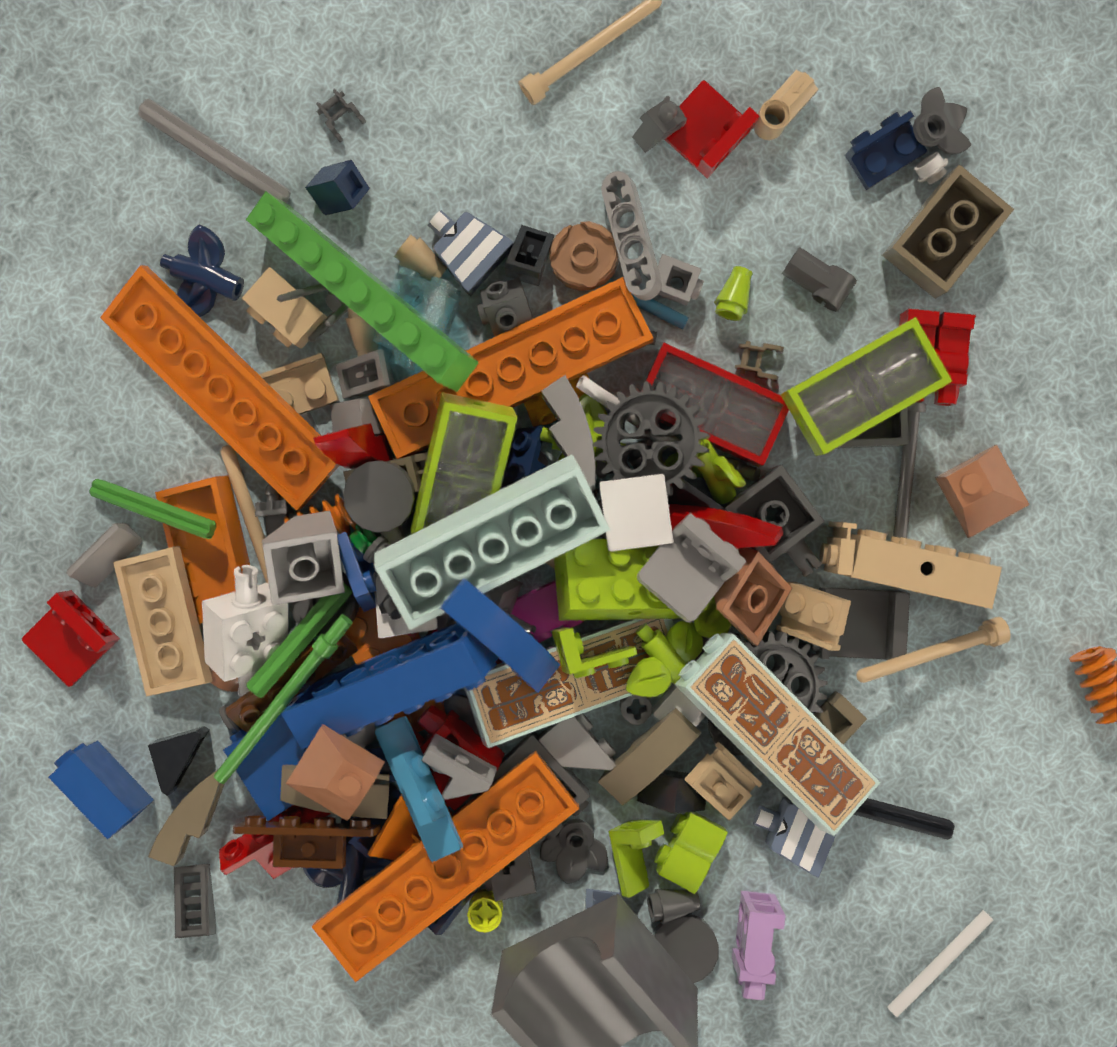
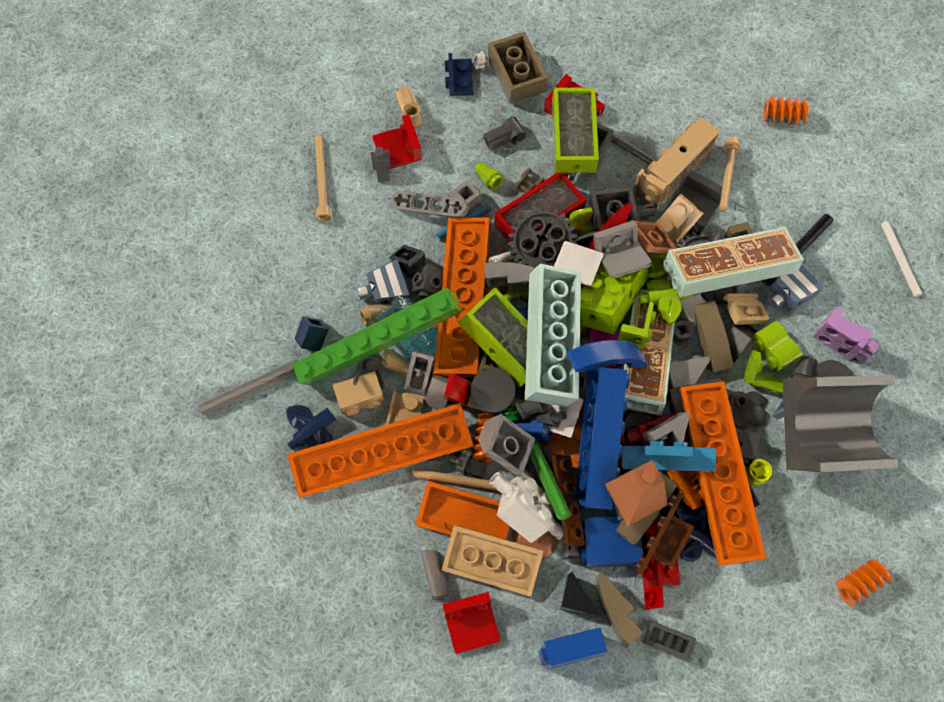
camera: 65 degrees left, 20 degrees down
(153, 508) = (424, 528): bright green axle -> none
(322, 648) = (560, 464): bright green bar -> none
(347, 107) = (264, 309): dark grey piece -> none
(584, 256) = (425, 233): medium nougat tile -> none
(940, 123) = (461, 46): dark grey plate -> none
(982, 491) = (655, 118): nougat slope -> none

